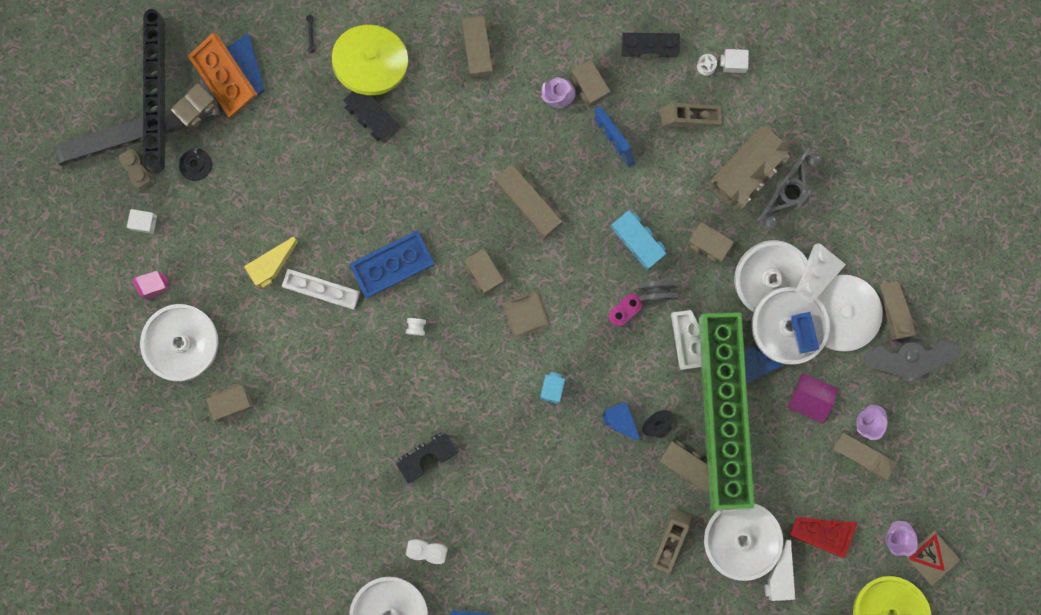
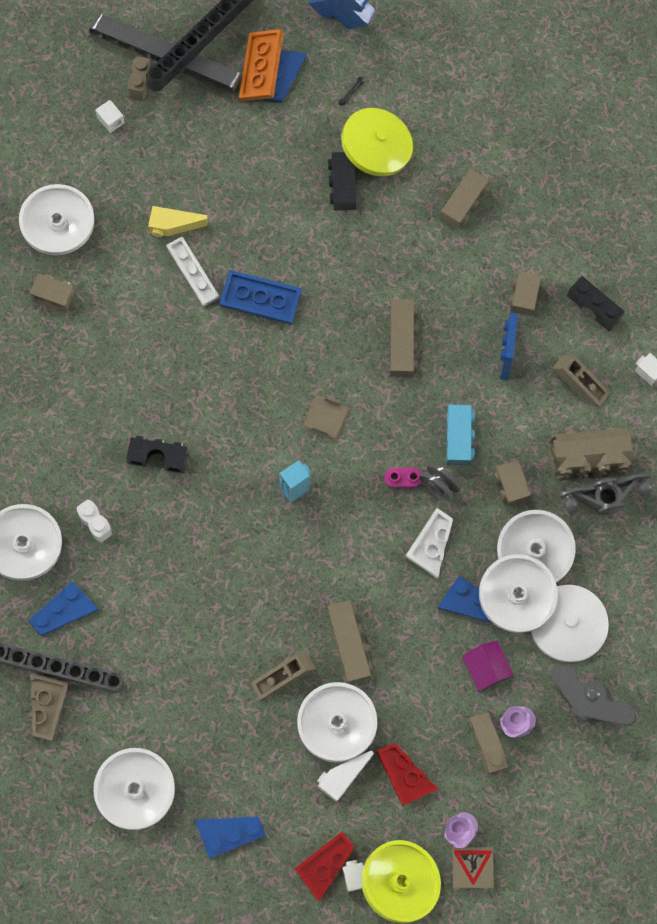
camera: 35 degrees right, 10 degrees down
(151, 284) = (74, 163): slope -> none
(194, 106) = (220, 66): dark tan brick -> none
(201, 170) = (184, 118): black piece -> none
(415, 326) = (236, 355): white wheel -> none
(483, 271) = (322, 359): dark tan brick -> none
(558, 92) = (494, 280): lavender hair -> none
(621, 421) = (325, 553): blue slope -> none
(658, 424) = (351, 581): black piece -> none
(708, 61) = (628, 350): white wheel -> none
(726, 412) = (410, 612): bright green brick -> none
(804, 332) = (524, 606): blue tile -> none
(818, 273) = (575, 572): white wing -> none
(896, 311) = (611, 657): dark tan slope -> none

